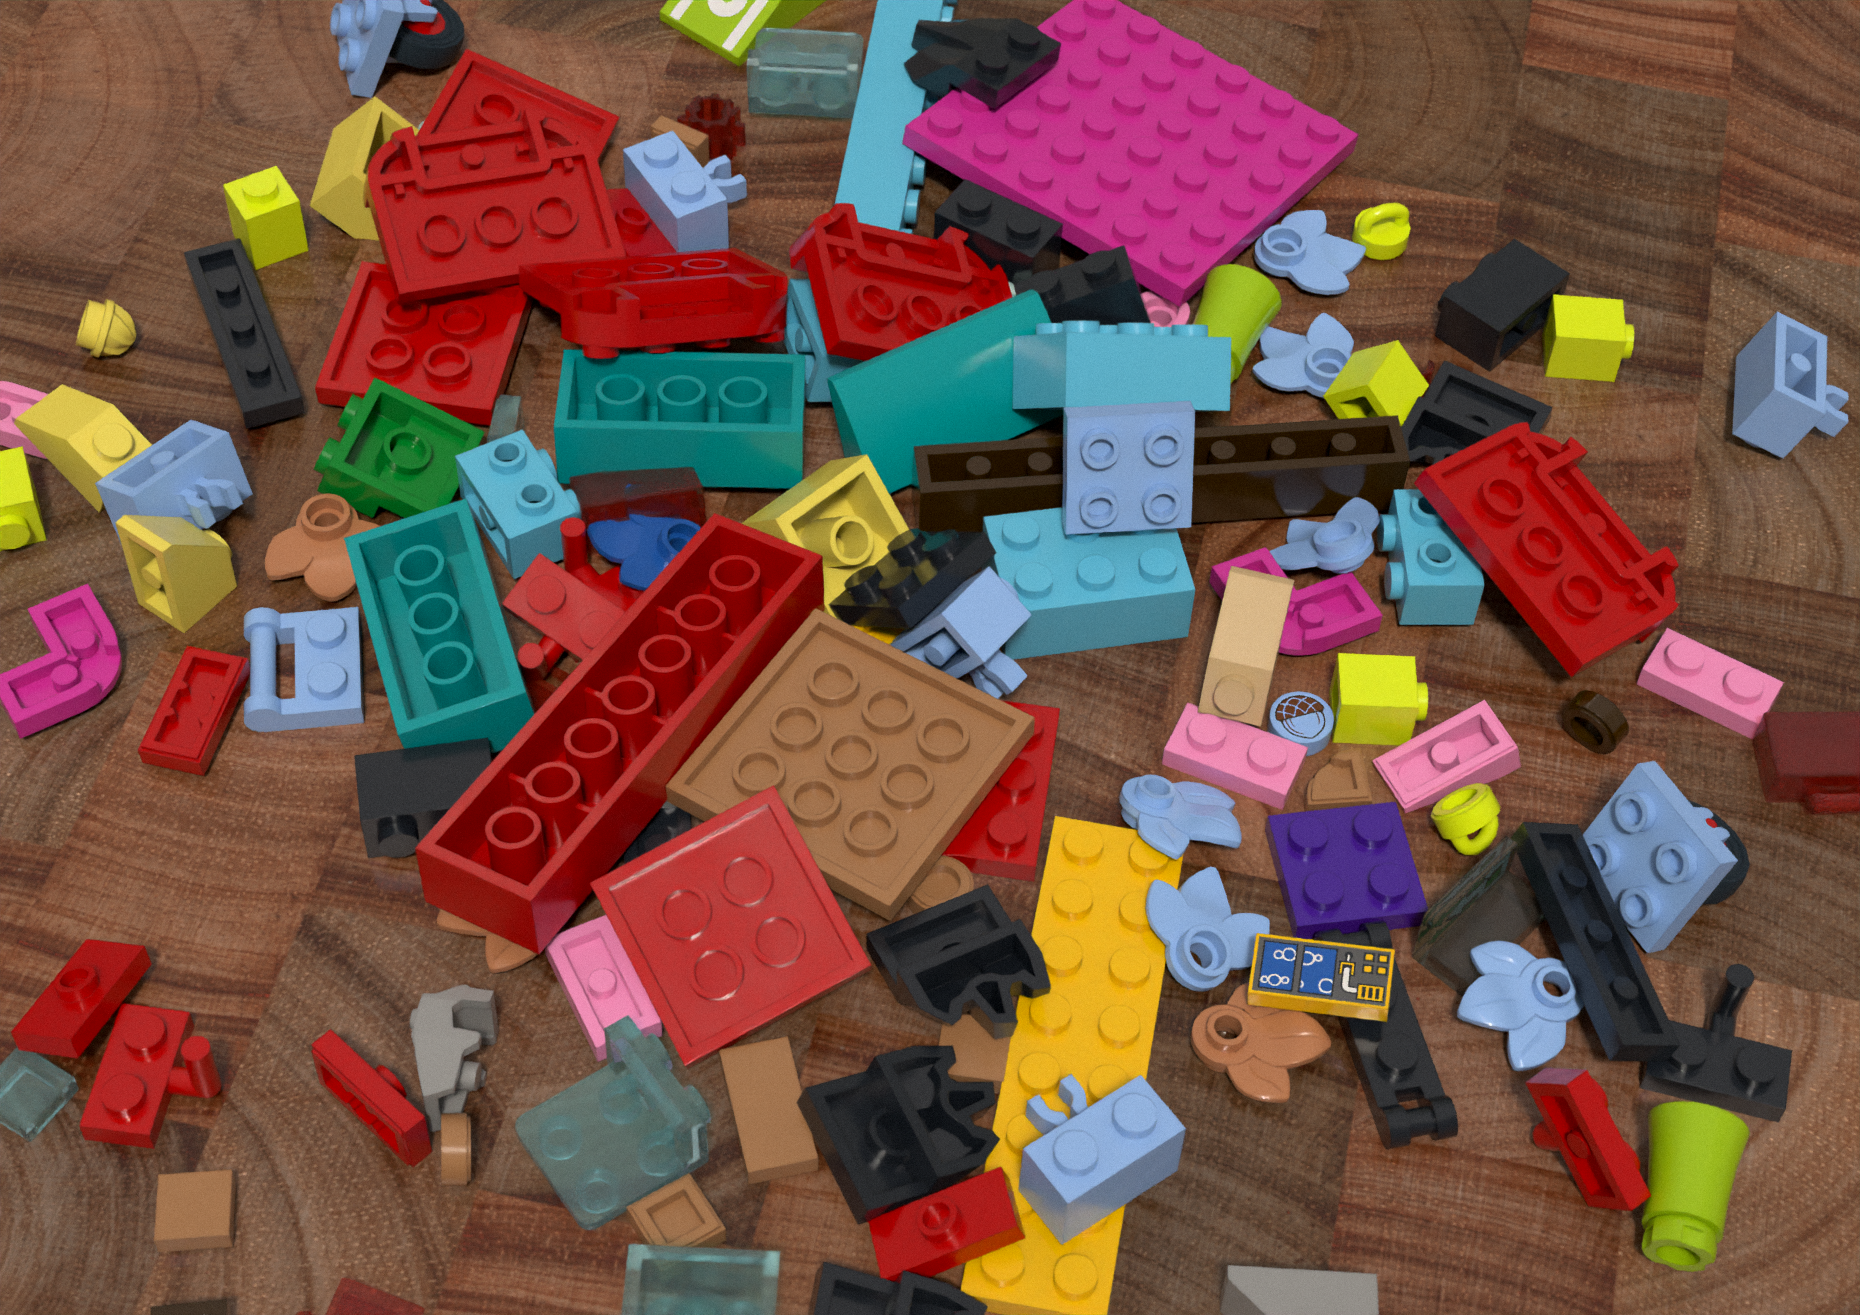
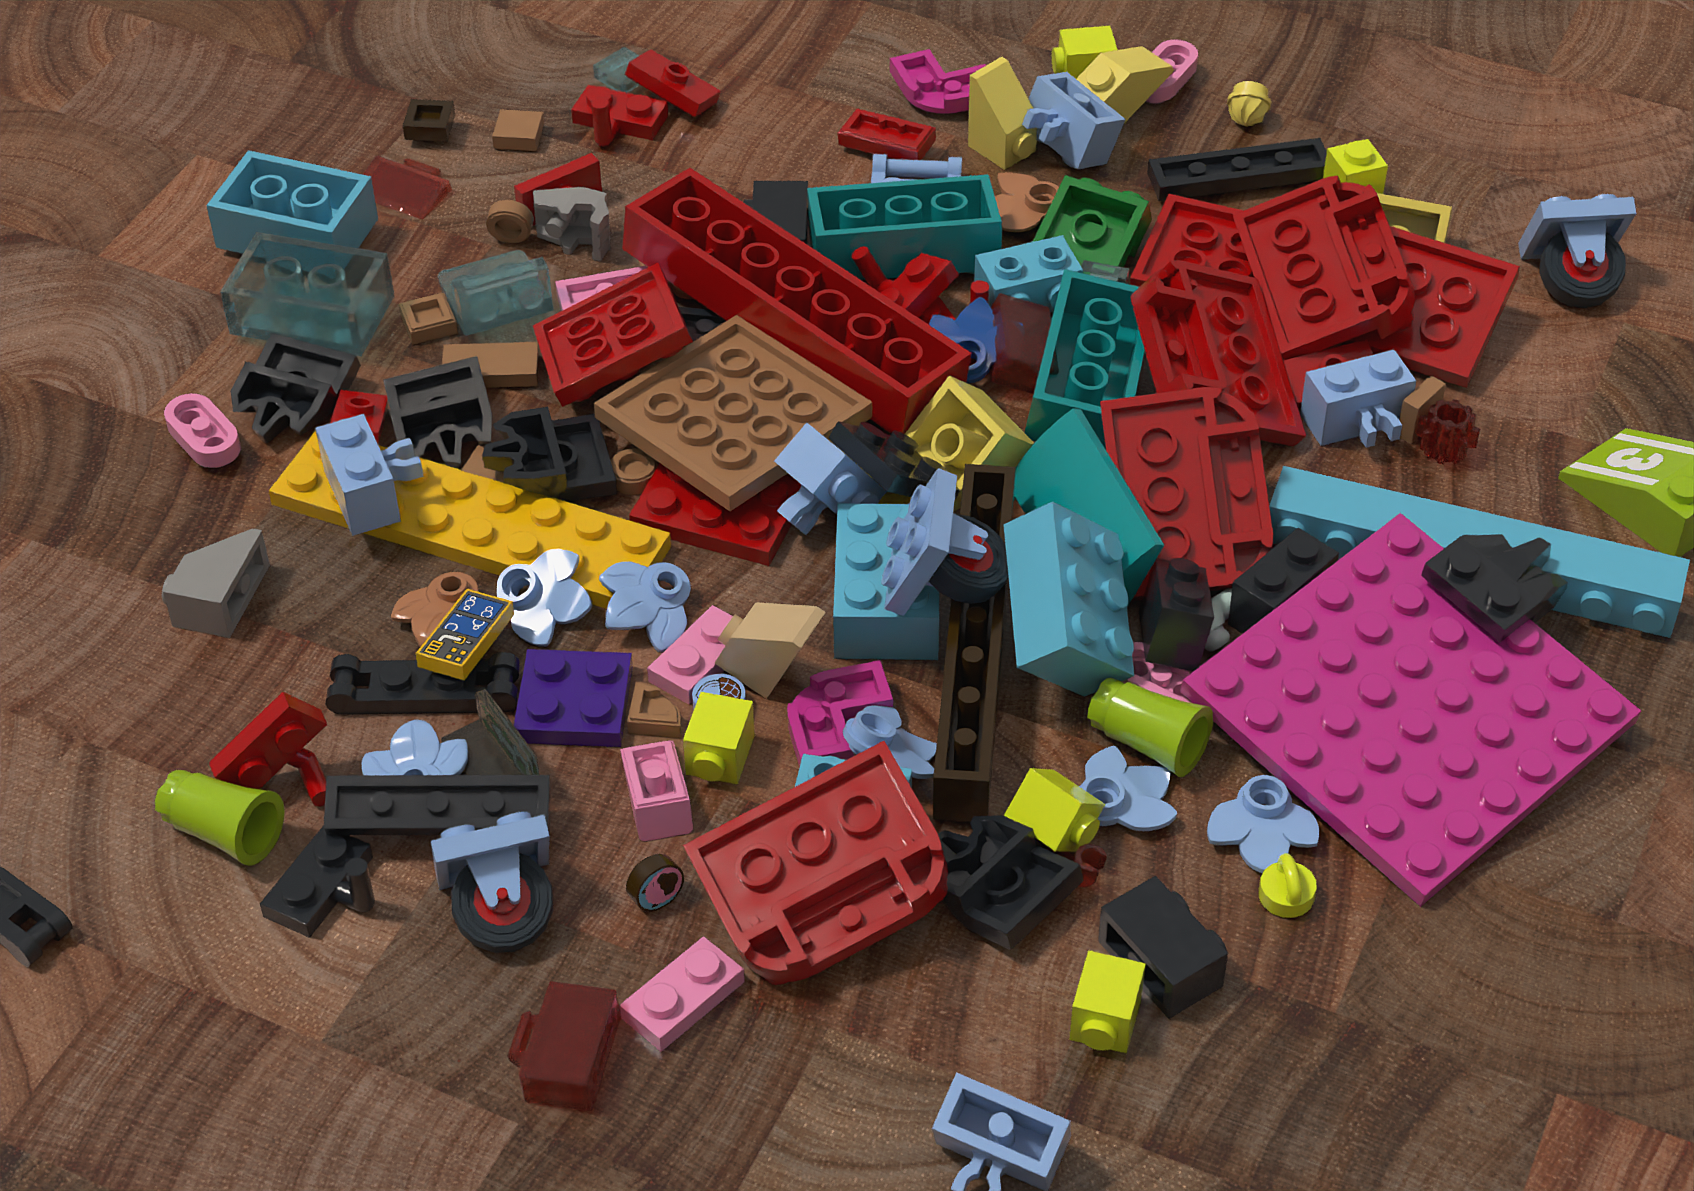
camera: 105 degrees right, 5 degrees down
(804, 72) = (1526, 493): clear light blue bracket -> none
(1466, 812) = (593, 772): neon yellow tile -> none

